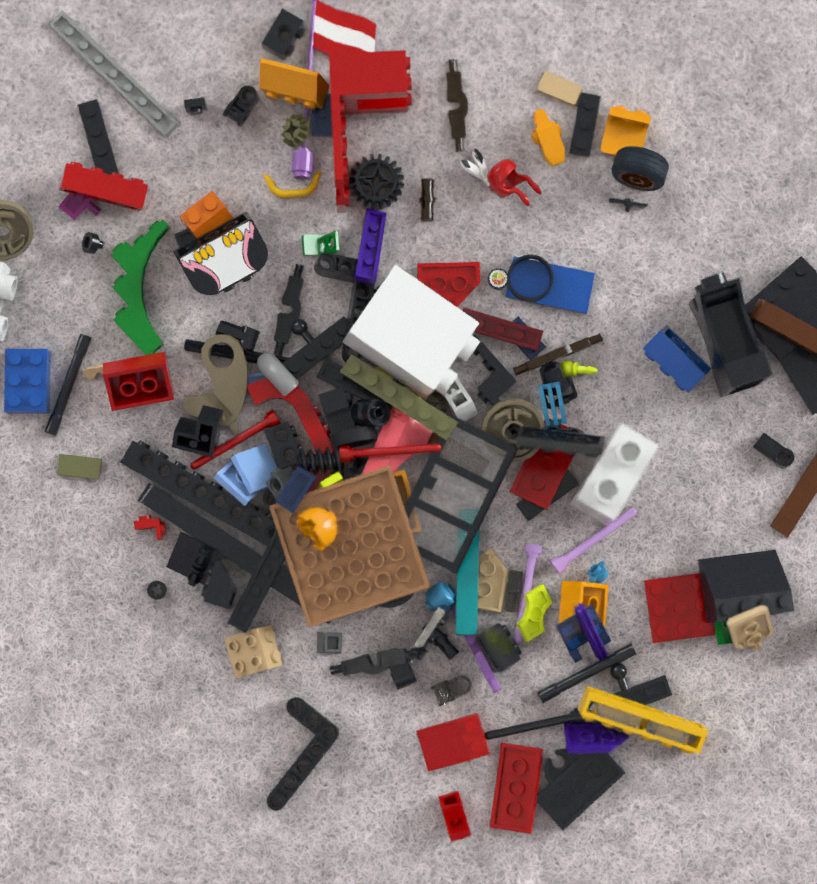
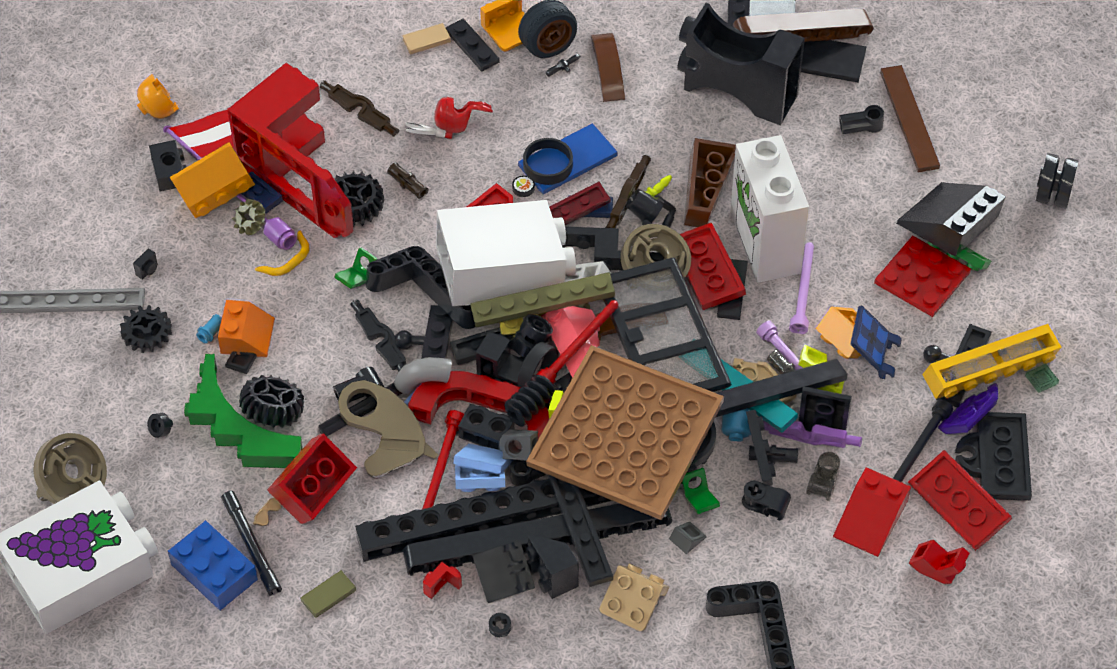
camera: 45 degrees left, 30 degrees down
(75, 204) = (116, 402): magenta plate -> none
(97, 136) = (88, 354): black plate -> none
(103, 187) = (128, 372): red brick -> none
(145, 166) = (146, 328): none -> black gear
(185, 300) = (271, 401): none -> black gear
(189, 197) = (209, 329): none -> dark azure pin
(199, 435) = (412, 470): black brick -> none
(223, 256) = (287, 330): brick -> none
(241, 106) = (185, 236): black piece -> none
(295, 489) = (535, 426): dark blue tile -> none
(318, 525) = (585, 429): light orange cylinder -> none
(363, 626) = (700, 497): none -> green bracket
(370, 246) = (400, 235): dark purple plate -> none
(384, 661) = (736, 518): black piece -> none
(485, 604) = (781, 386): none -> black tile
(548, 137) = (455, 67): light orange hinge -> none
(555, 421) = (665, 217): dark azure tile -> none
(566, 440) = (704, 214): black plate -> none
(590, 631) = (880, 331): dark purple axle -> none
(598, 573) = (835, 300): dark azure plate -> none
(617, 657) = (920, 343): black piece -> none
(624, 392) = (707, 175): none -> reddish brown wedge
(657, 233) = (608, 67): none -> reddish brown slope
(669, 757) = (1042, 378): none -> clear green tile
(676, 359) = (720, 116): blue brick -> none
(750, 628) = (991, 228): tan tile -> none

